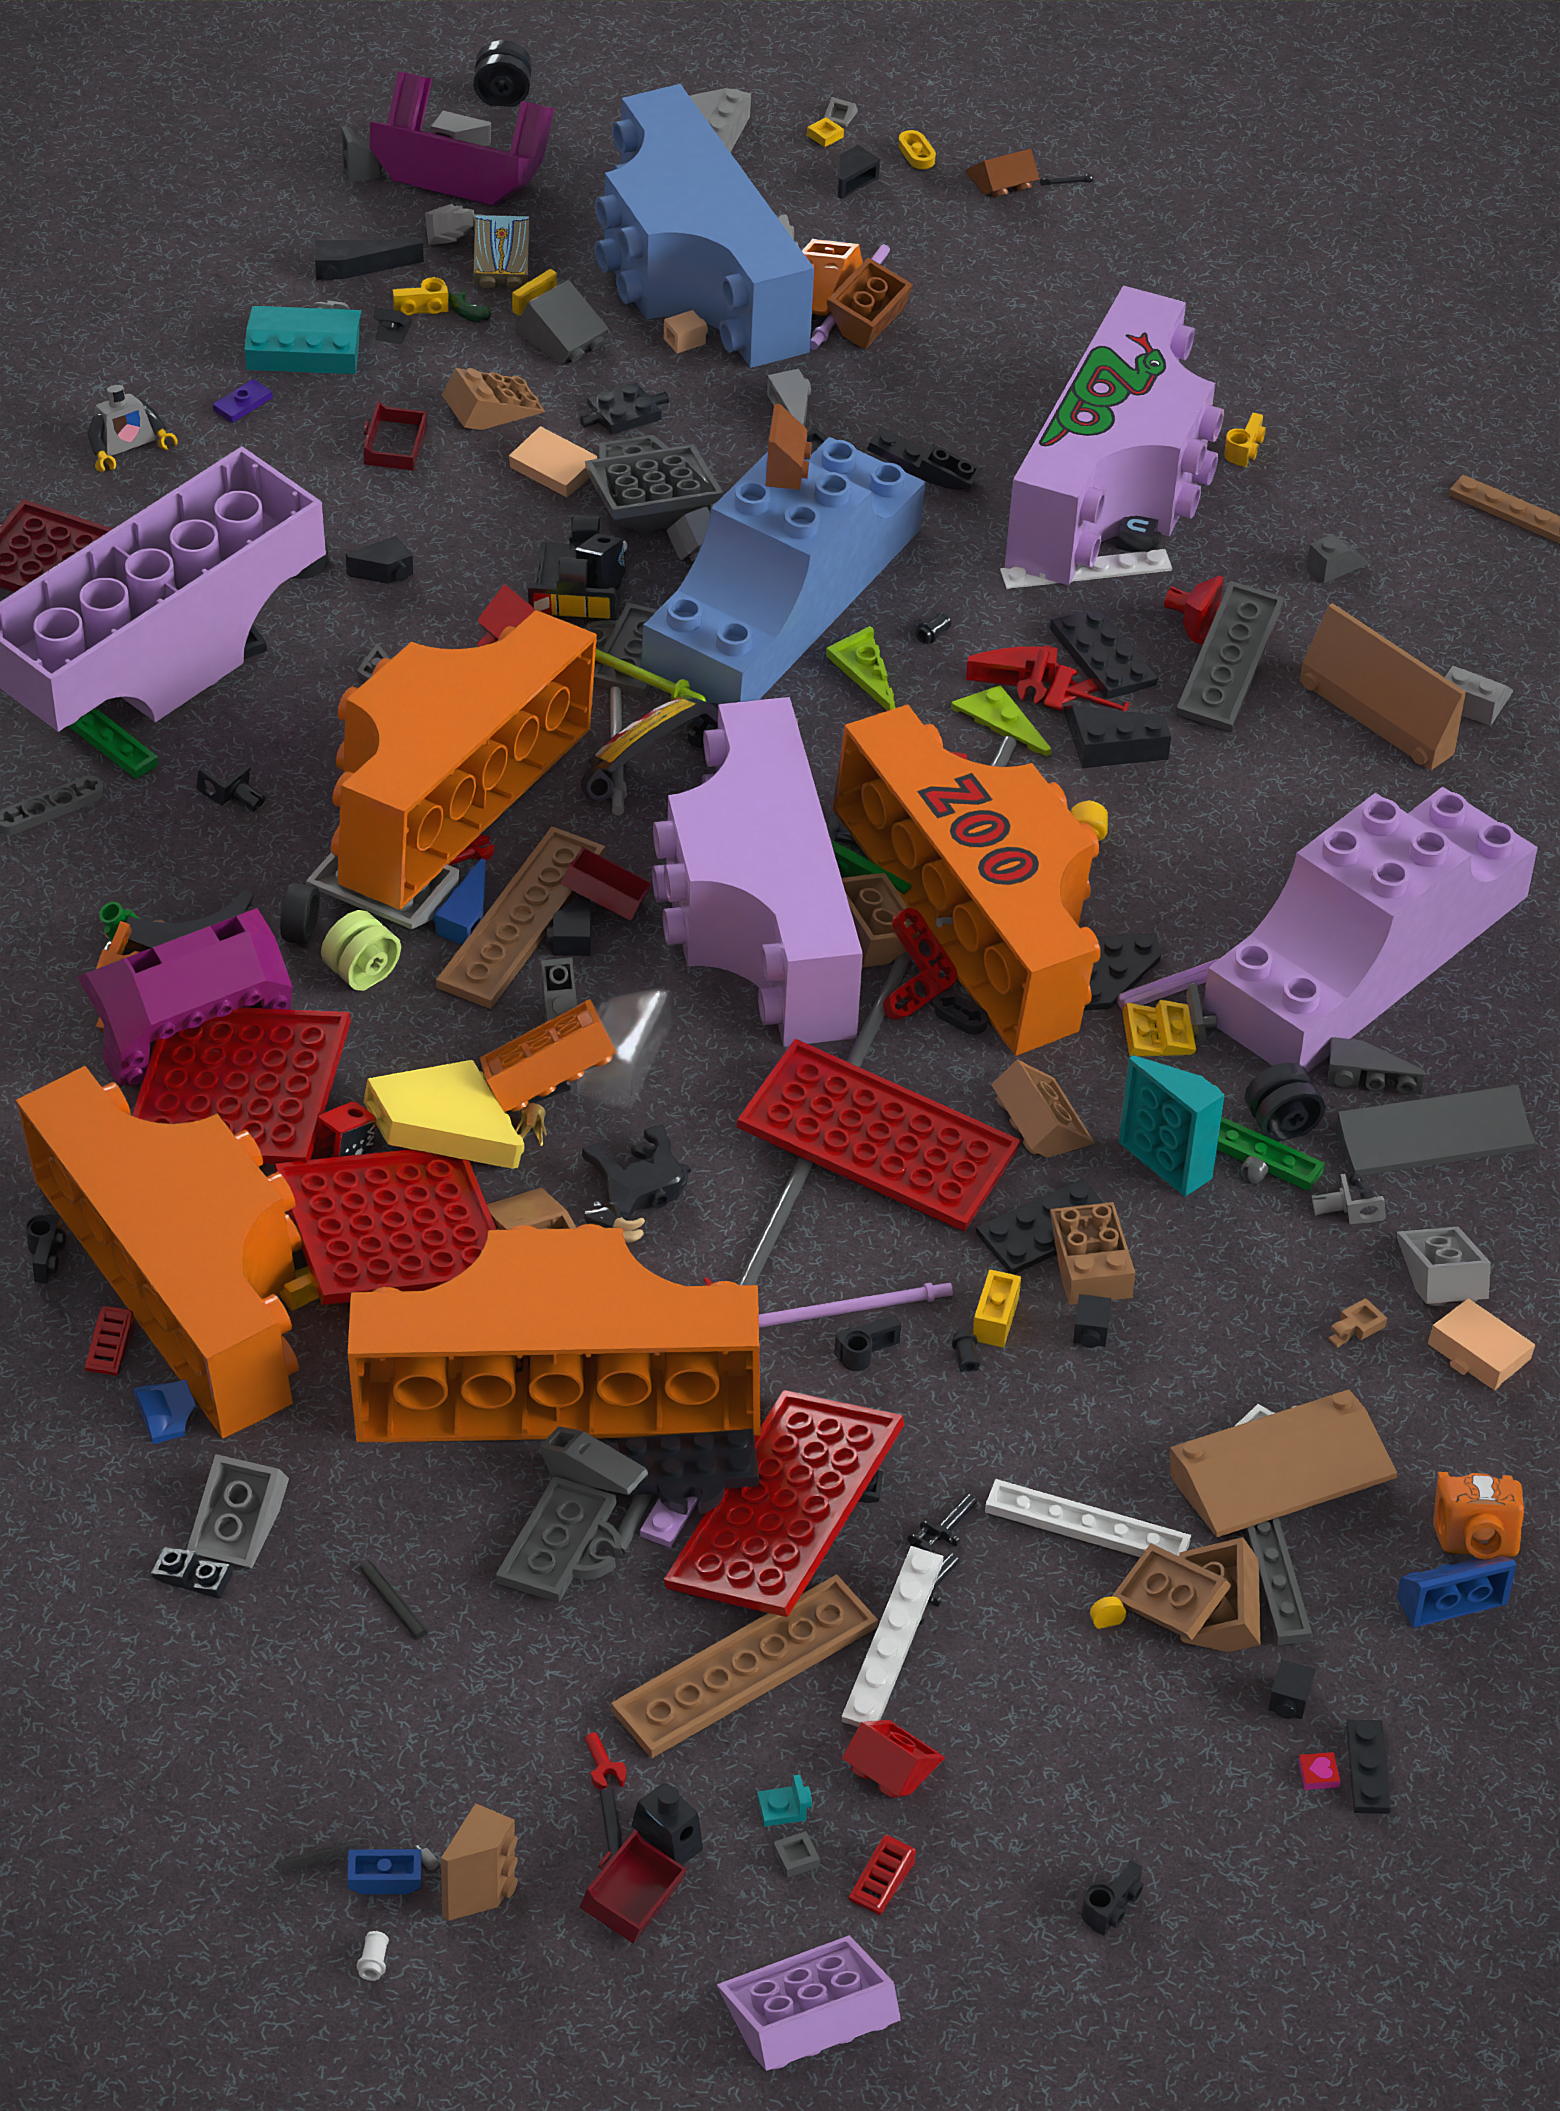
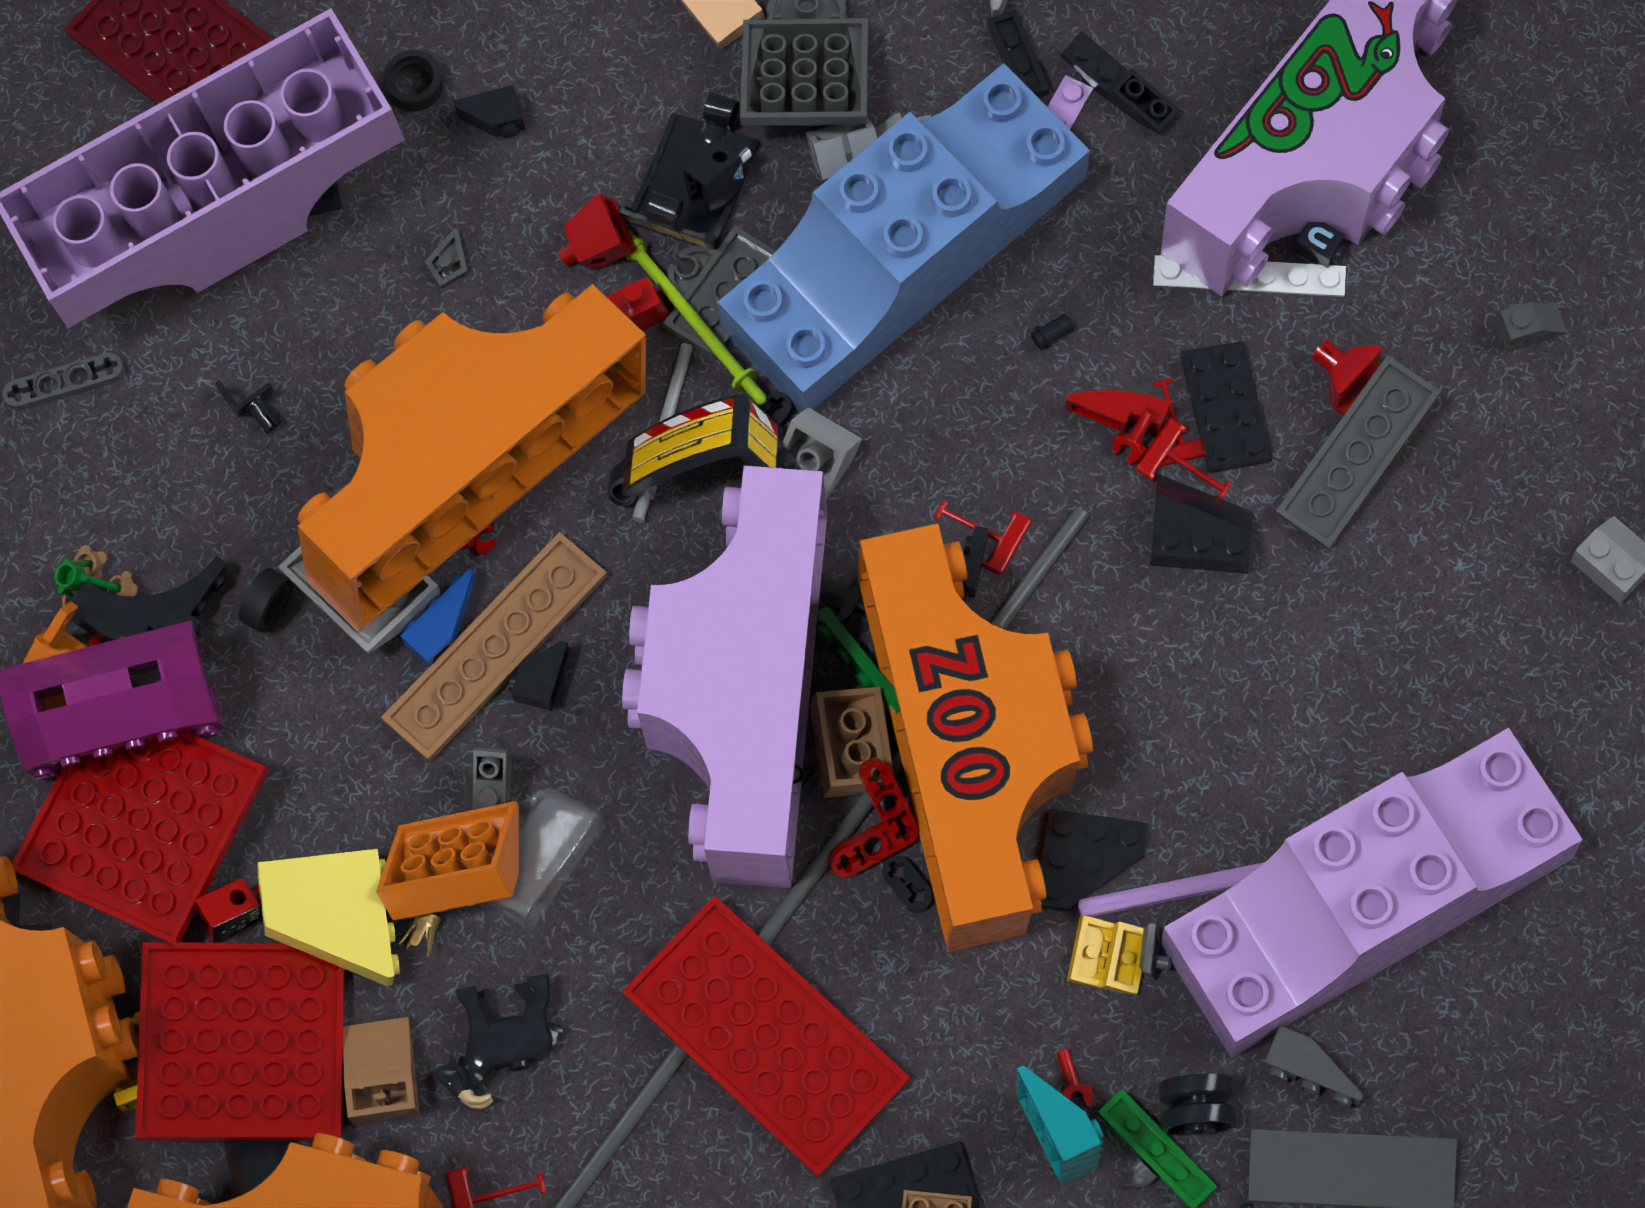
camera: 25 degrees right, 25 degrees up
(115, 743) = (156, 323): green plate -> none
(360, 950) = (310, 669): yellowish green wheel -> none
(606, 883) = (584, 636): dark red container -> none
(787, 451) = (905, 149): dark orange slope -> none
(861, 661) = (958, 363): lime wing -> none
(1003, 716) = (1083, 467): lime wing -> none
(1040, 1111) = (946, 1043): medium nougat slope -> none
(1093, 814) = (1126, 652): yellow head -> none
(1242, 444) = (1501, 117): yellow plate -> none
(1384, 688) = (1503, 550): medium nougat slope -> none

